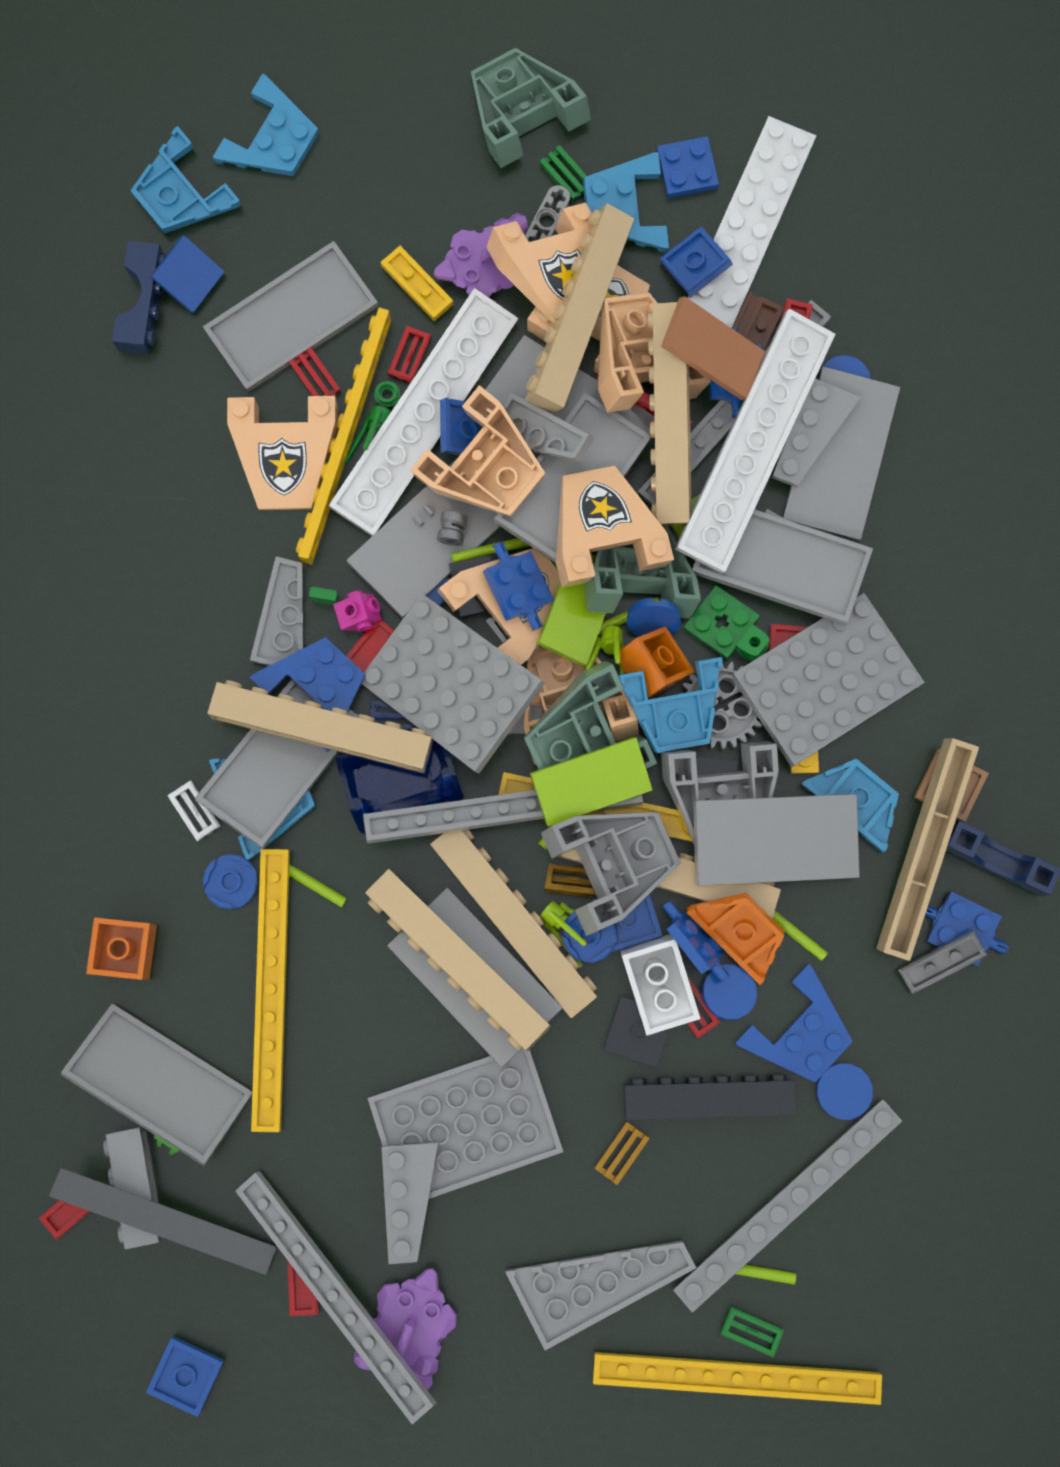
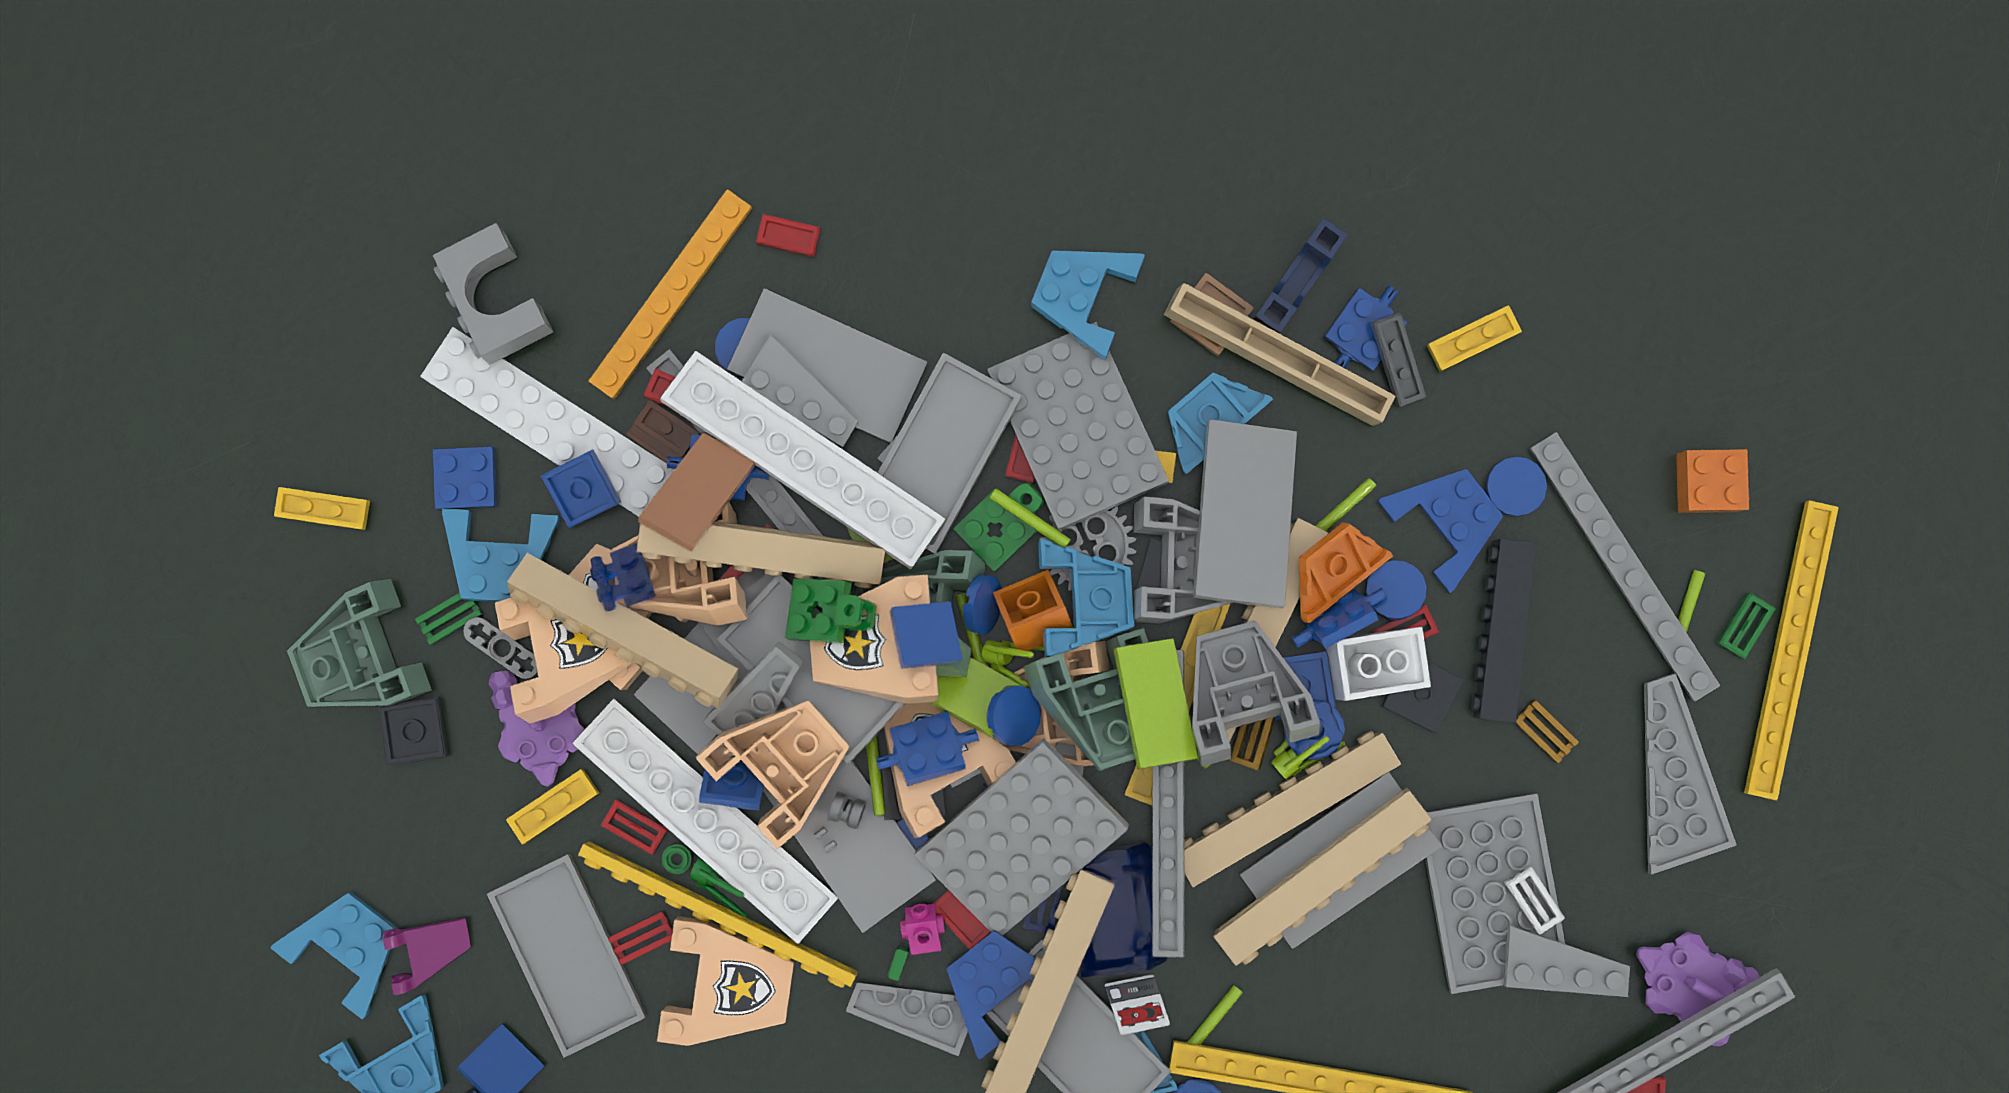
camera: 75 degrees left, 5 degrees up
(279, 201) = (428, 948): none -> magenta flag
(317, 811) = (1137, 1004): none -> sticker
(446, 1179) = (1520, 878): none -> white tile
(463, 159) = (413, 731): none -> black plate
(559, 658) = (1014, 715): none -> blue tile
(620, 563) = (925, 635): none -> blue tile
(628, 307) = (632, 574): none -> clear blue plate
(629, 487) = (839, 611): none -> green plate
(641, 55) = (322, 508): none -> yellow plate
(738, 646) = (1029, 518): none -> lime bar
(867, 134) = (461, 269): none -> light grey arch
(879, 312) = (670, 294): none -> light orange plate
(883, 1277) = (1712, 481): none -> orange brick
(949, 404) = (788, 235): none -> red tile
(952, 656) = (1071, 287): none -> dark azure wing
(974, 1030) = (1474, 338): none -> yellow plate

